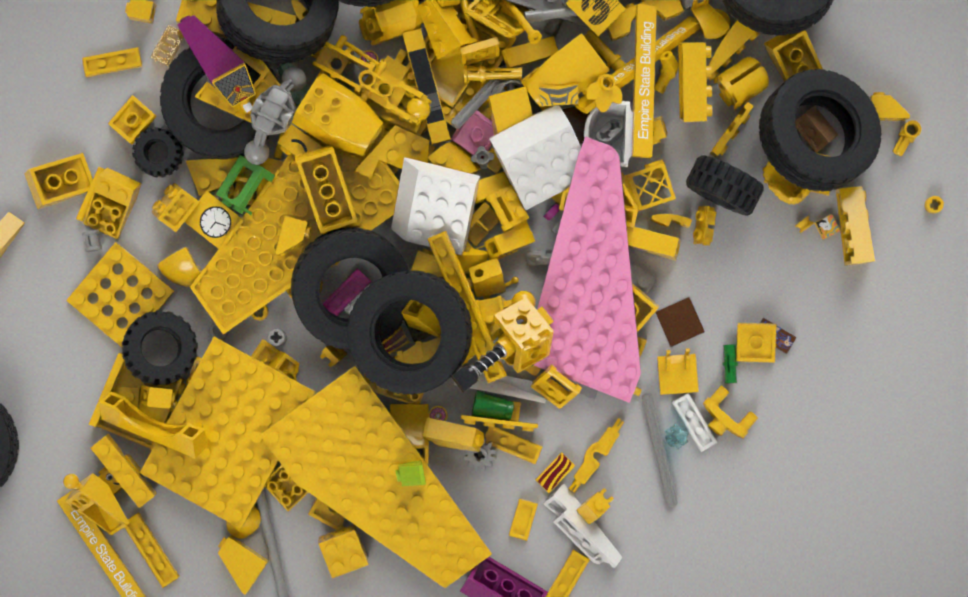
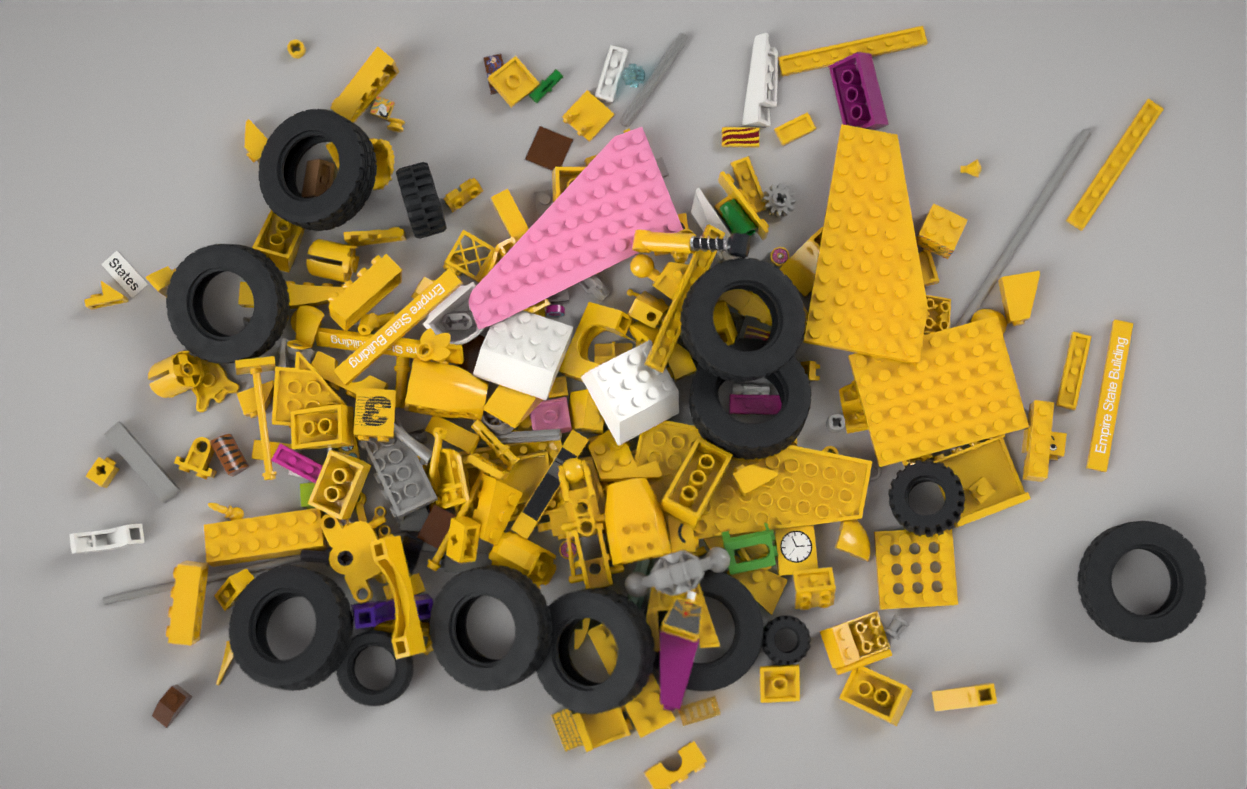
camera: 135 degrees left, 5 degrees down
(96, 502) = (1079, 439): yellow slope -> none
(112, 62) = (751, 742): yellow tile -> none
(122, 413) = (999, 479): yellow arch -> none
(156, 396) = (964, 467): yellow slope -> none
(411, 473) = (841, 226): lime slope -> none
(453, 435) = (784, 227): yellow slope -> none
(482, 162) = (563, 391): light grey plate -> none
(507, 207) = (583, 340): yellow plate -> none
(532, 339) = (666, 231): yellow bracket -> none
(552, 390) = (684, 189): yellow plate -> none
(558, 95) = (466, 377): tile -> none
(590, 464) = (711, 119): yellow piece -> none
(594, 506) = (738, 85): yellow brick -> none
(665, 219) = (483, 223): yellow slope -> none
(721, 421) = (593, 54): yellow connector -> none
(906, 138) = (266, 110): yellow axle -> none

